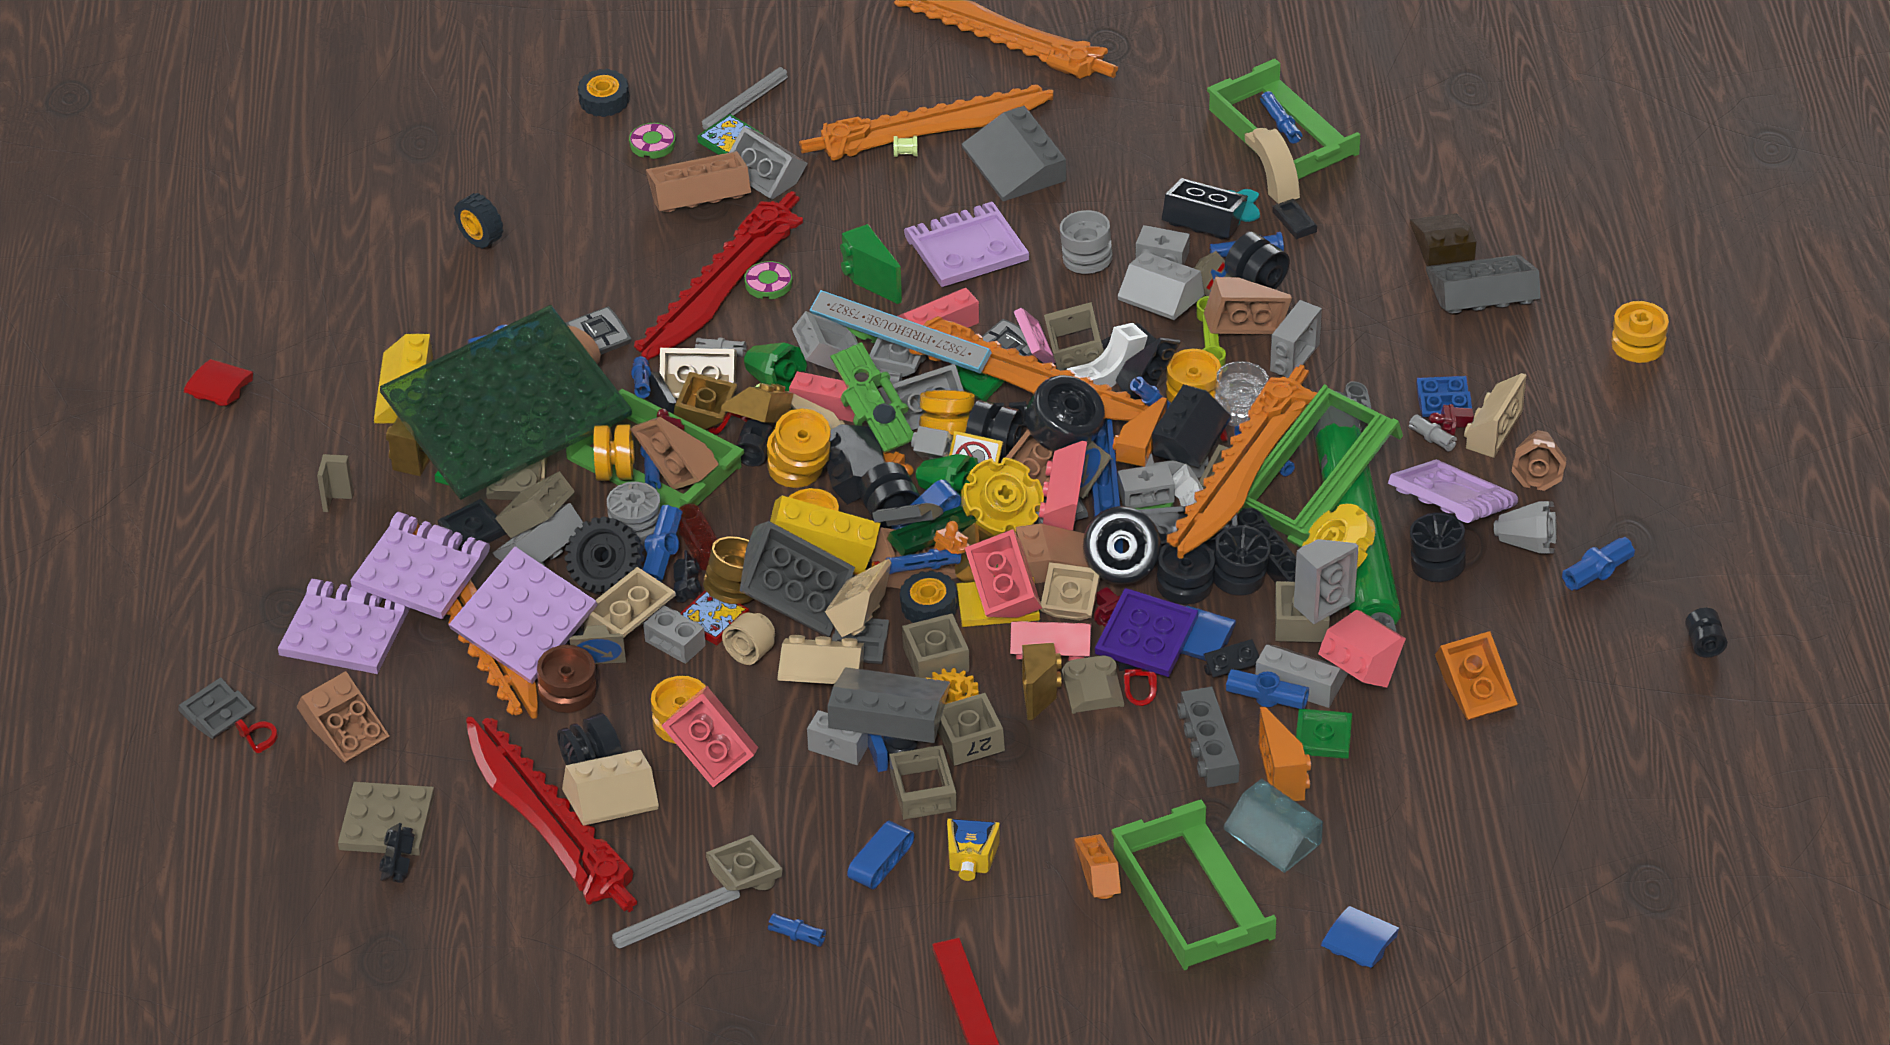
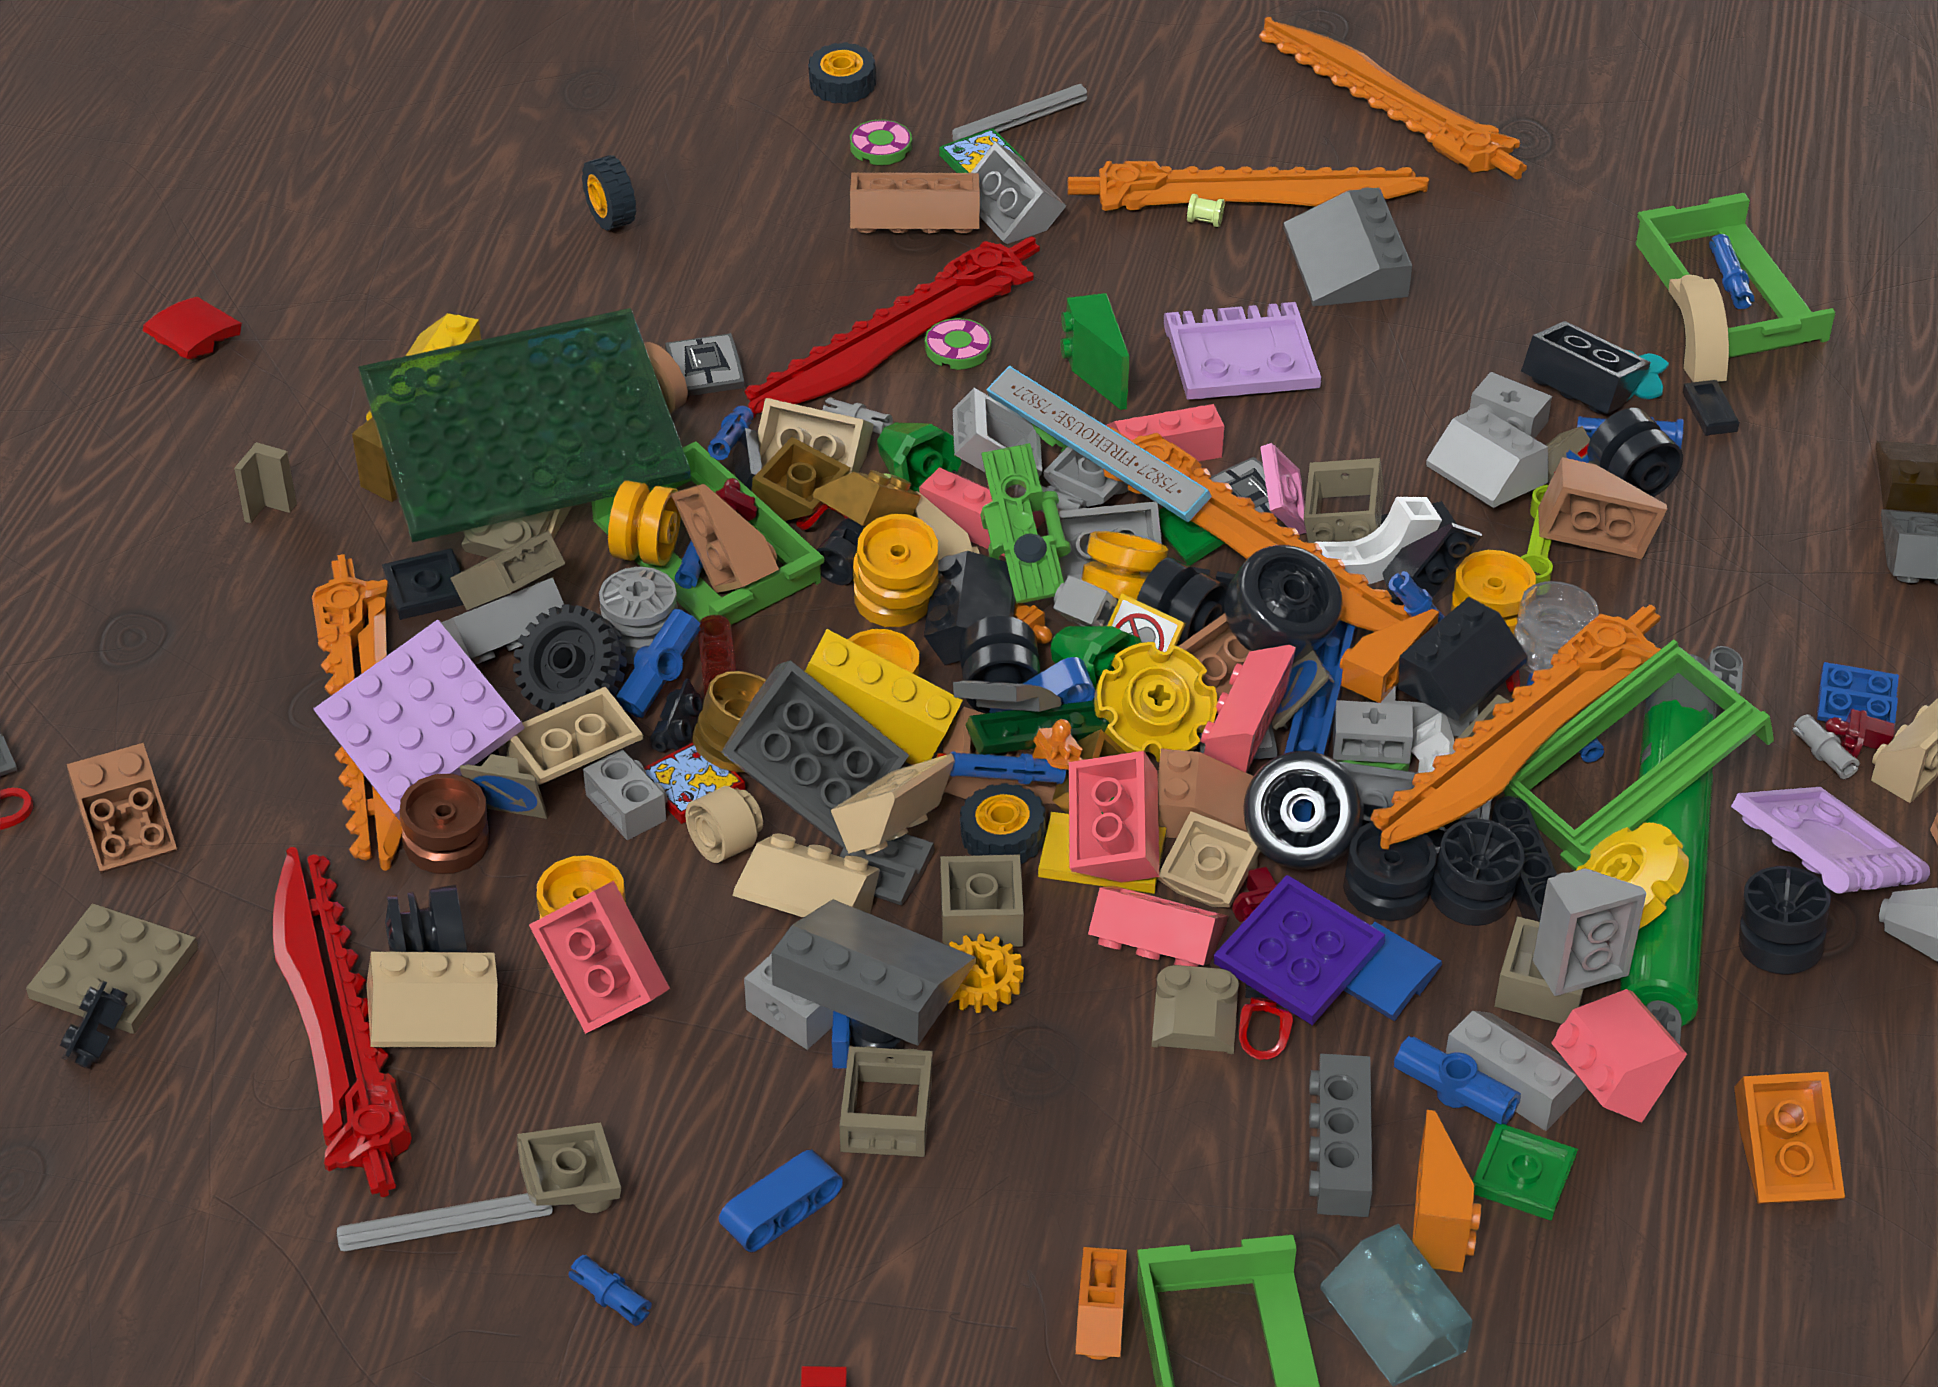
camera: 15 degrees right, 0 degrees up
(343, 631) = (192, 687): lavender hinge -> none
(421, 568) = (321, 625): lavender hinge -> none
(971, 729) = (985, 1036): dark tan brick -> none
(972, 846) = (920, 1222): torso -> none
(1040, 676) = (1116, 981): pearl gold slope -> none
(1086, 241) = (1403, 378): light grey wheel -> none
(1231, 657) = (1415, 1018): black hinge -> none
(1294, 340) = (1656, 567): light grey window -> none

